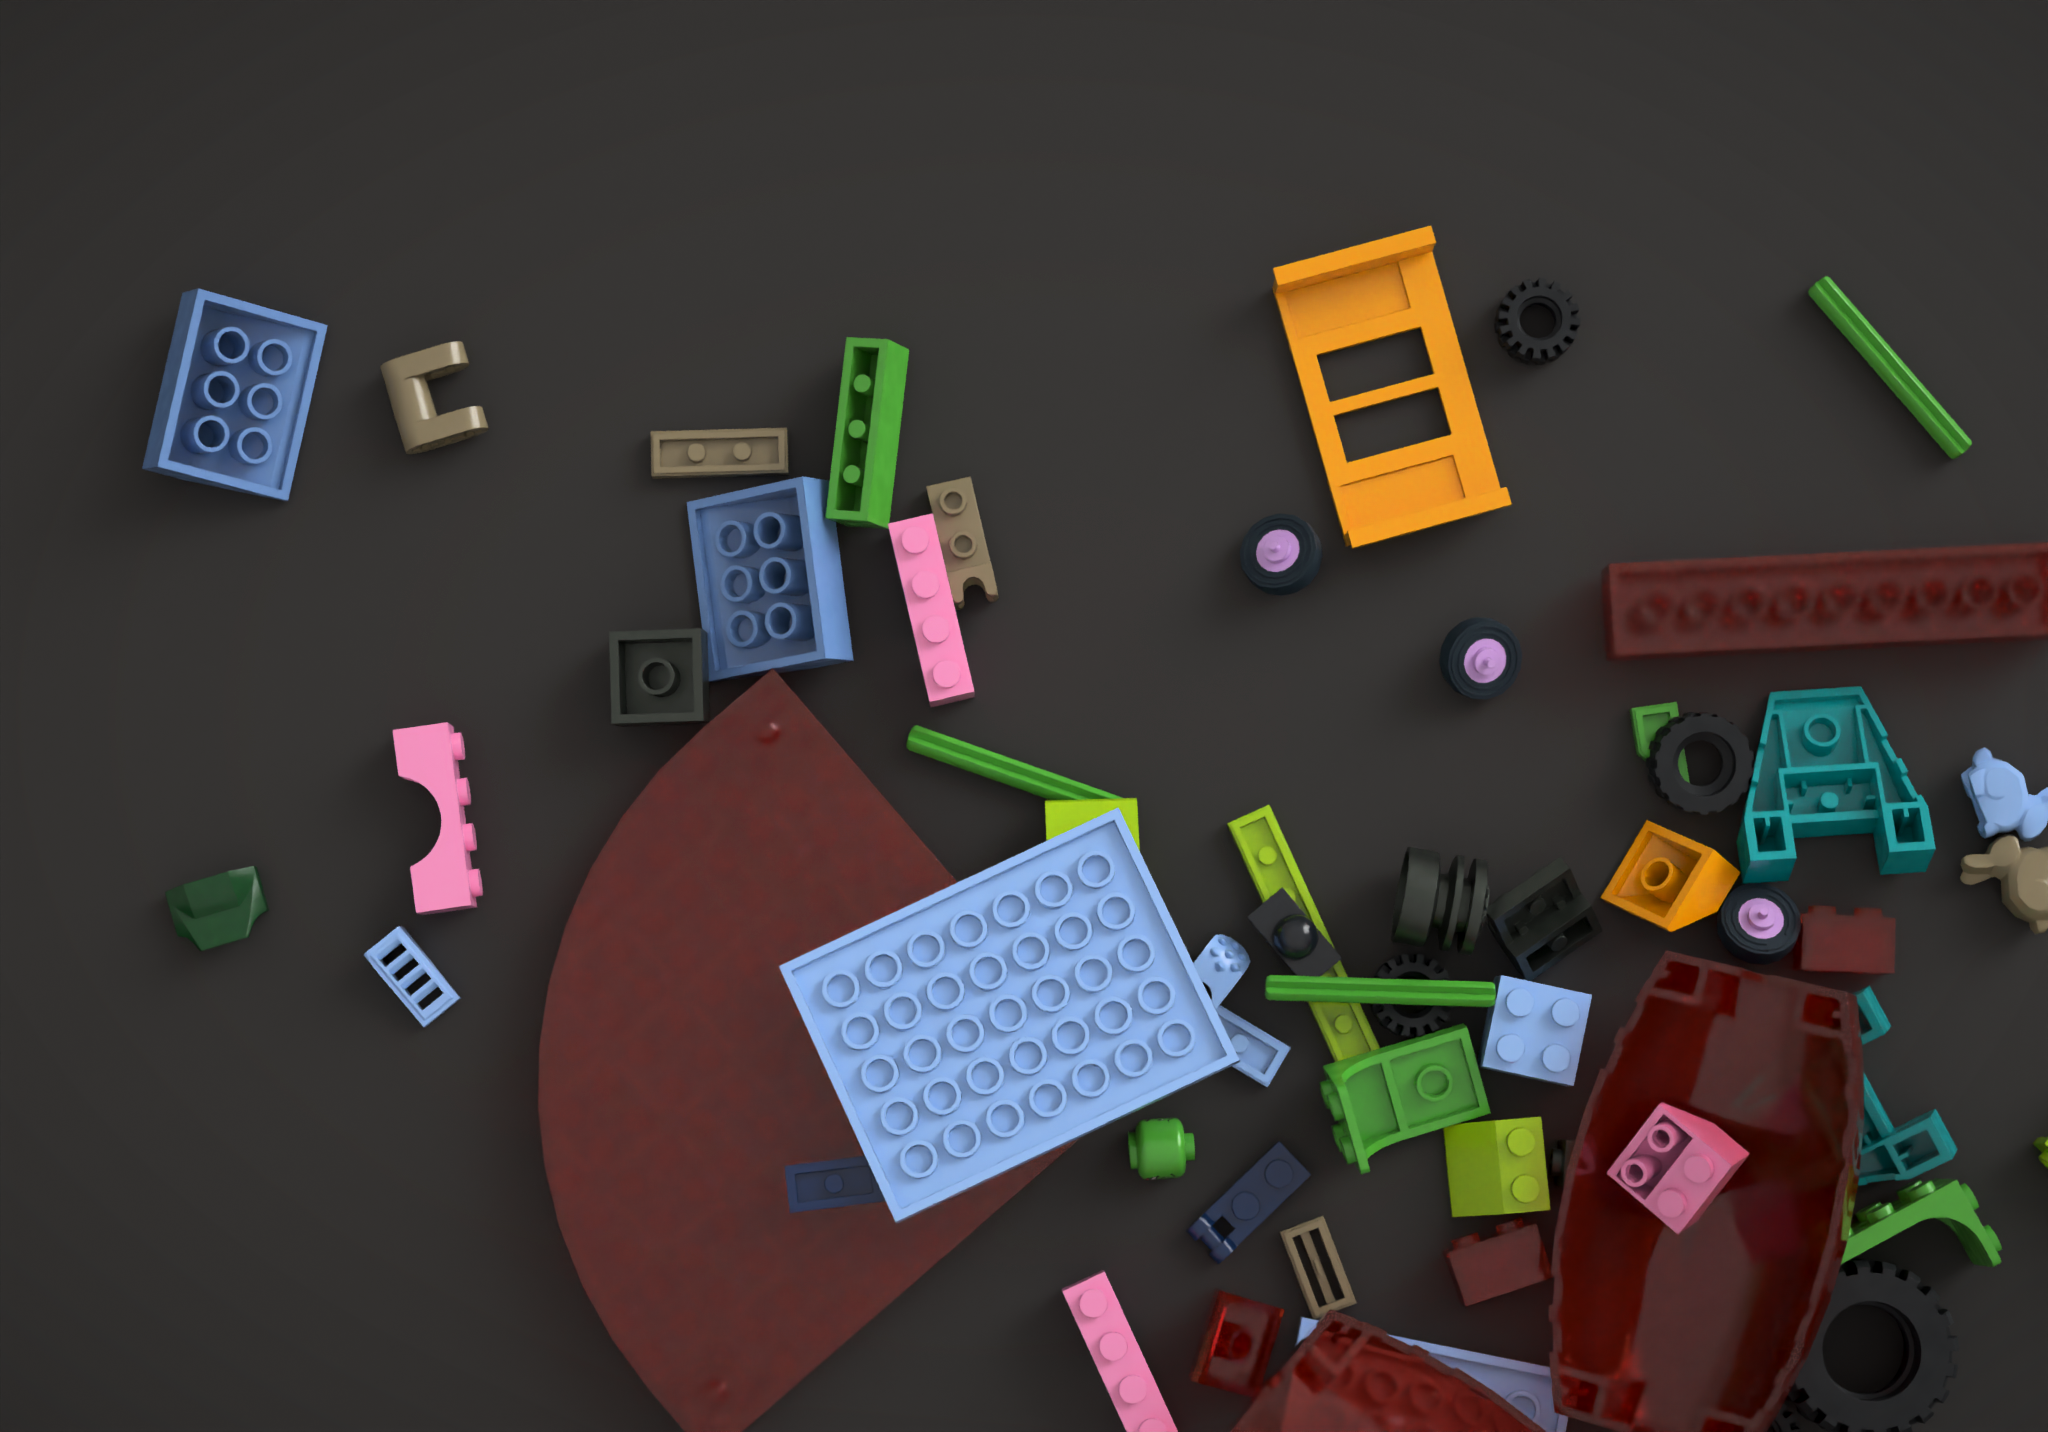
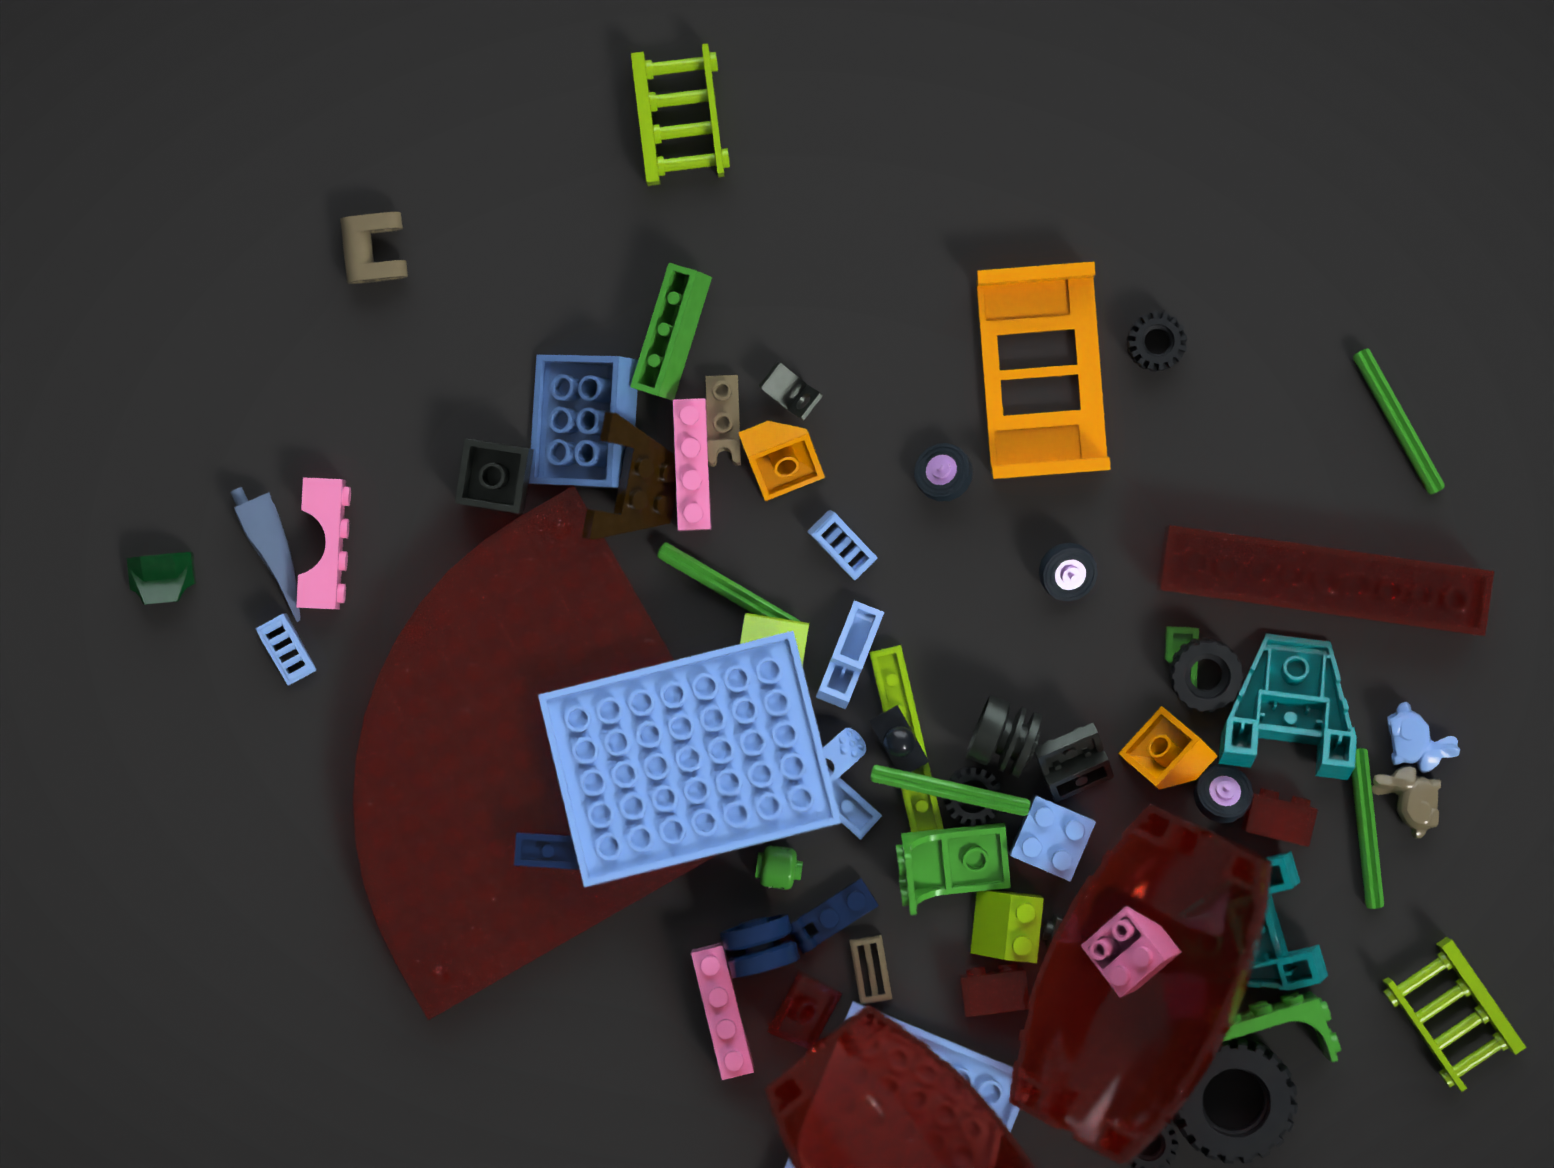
camera: 10 degrees right, 5 degrees up
(234, 395) = (235, 219): medium blue slope -> none
(355, 821) = (266, 534): none -> sand blue piece
(719, 453) = (566, 324): dark tan tile -> none
(791, 170) = (650, 102): none -> lime fence
(871, 647) = (645, 484): none -> dark brown wing
(1046, 483) = (790, 390): none -> pearl dark grey bracket
(1052, 577) = (781, 457): none -> light orange slope
(1135, 684) = (822, 525): none -> light blue slope
(1156, 1261) = (761, 950): none -> dark blue wheel
(1201, 832) = (850, 654): none -> light blue slope
(1968, 940) = (1367, 831): none -> bright green axle

